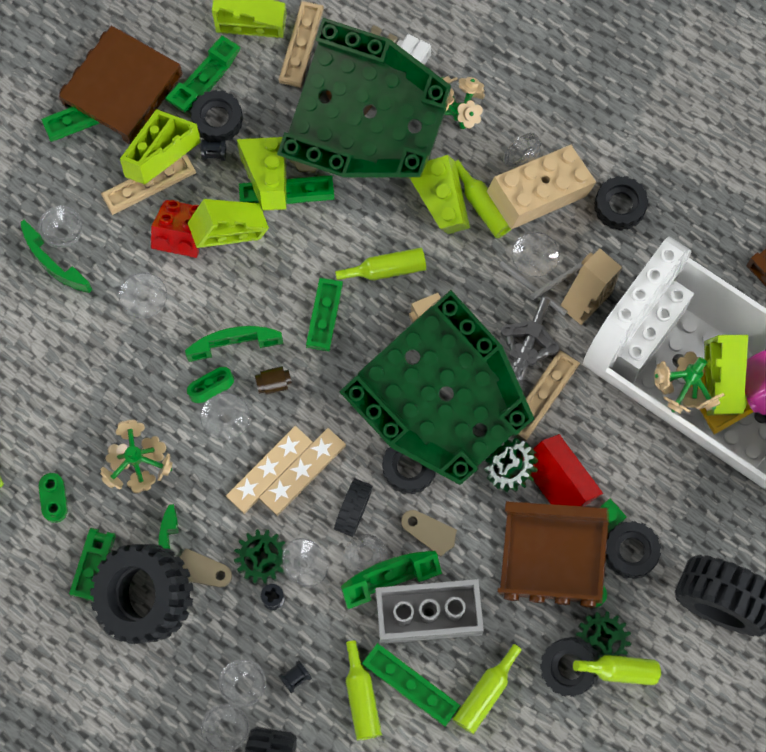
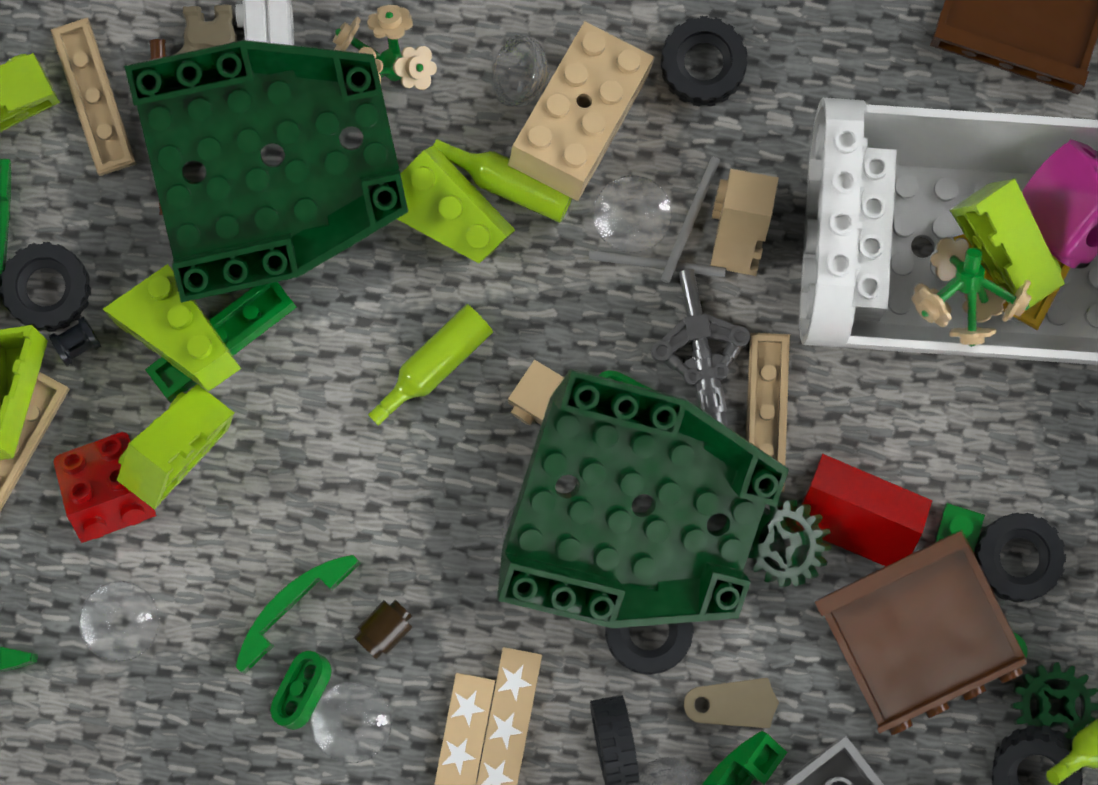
camera: 30 degrees left, 10 degrees up
(324, 314) = (393, 486): green plate -> none

